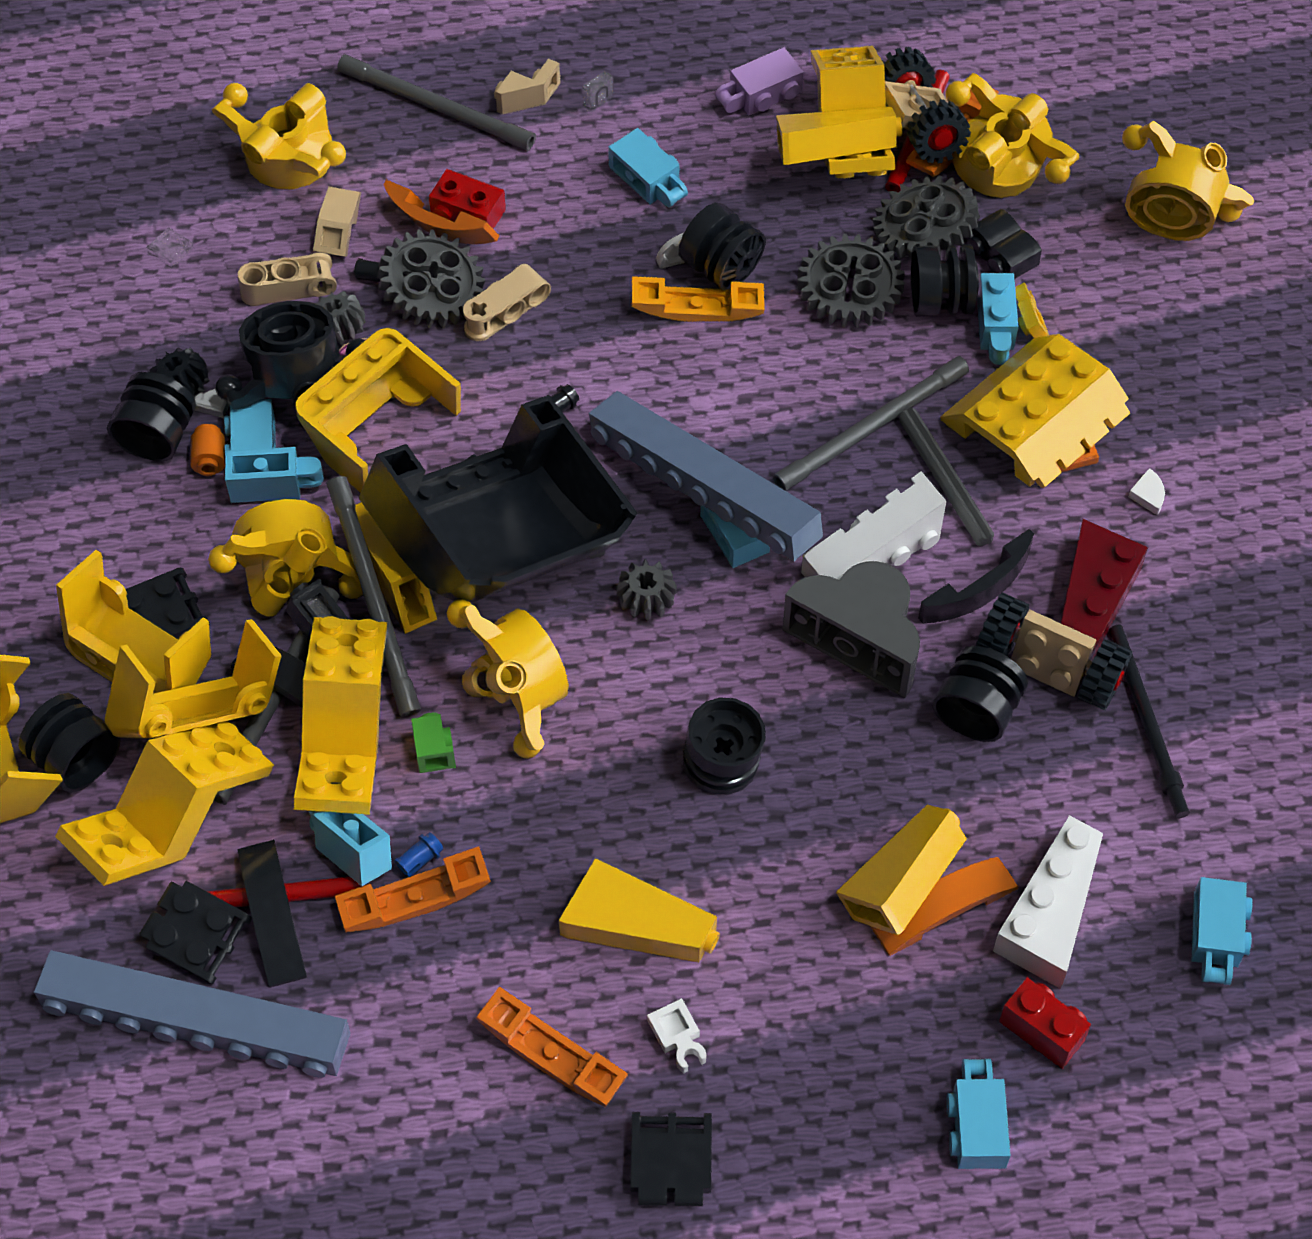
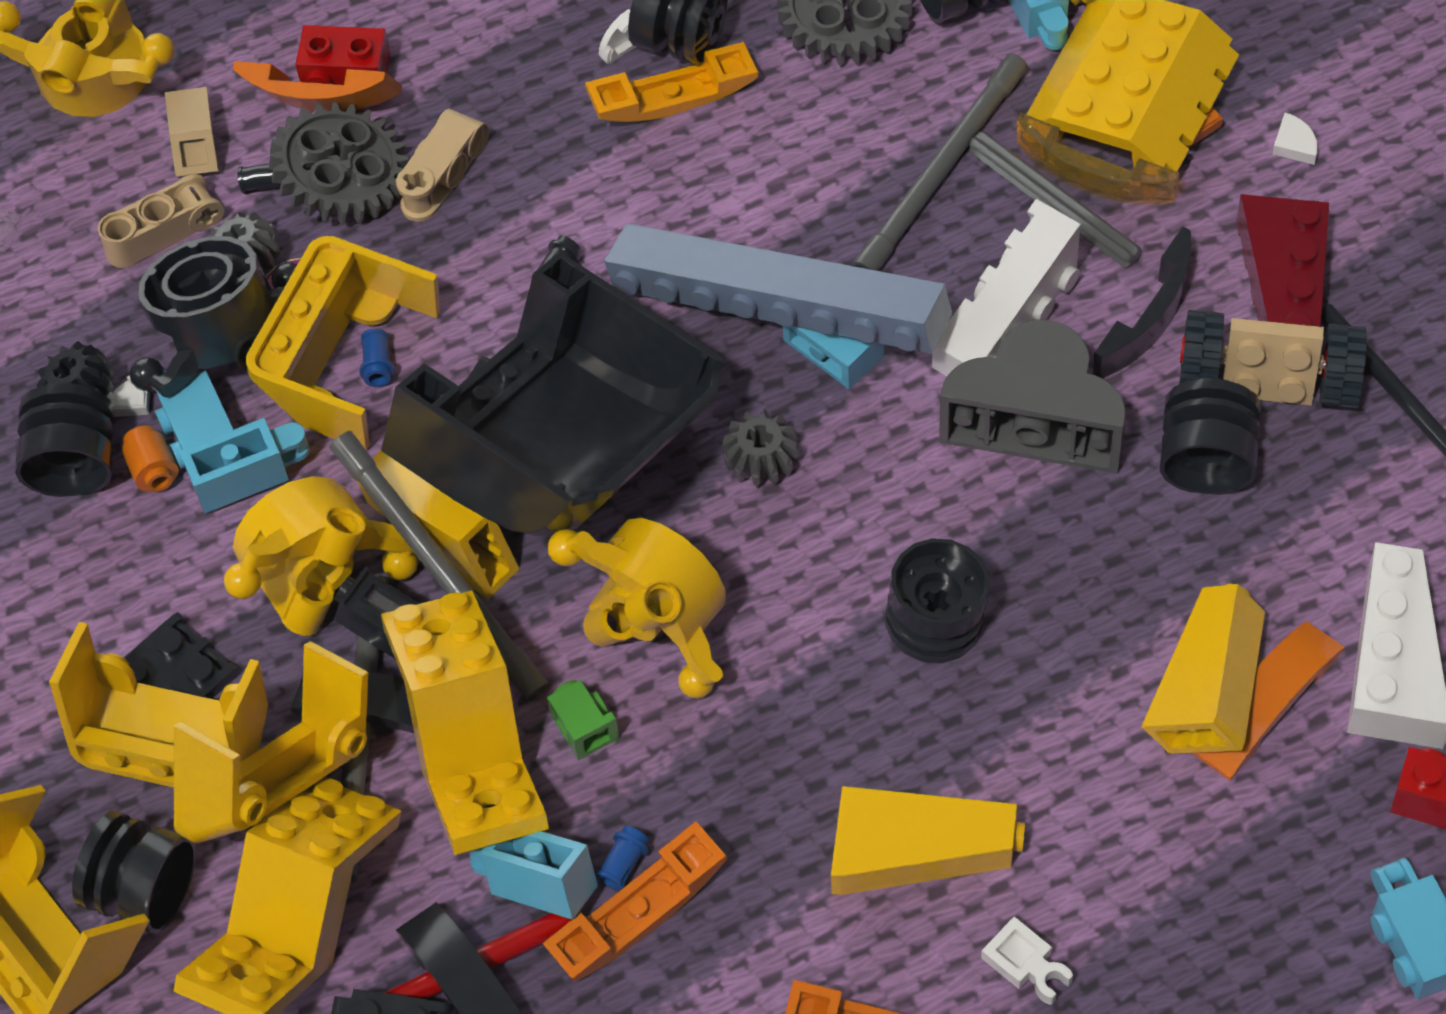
camera: 15 degrees left, 0 degrees up
(398, 429) = (376, 367): none -> blue pin
(1014, 487) = (1143, 185): none -> clear yellow slope

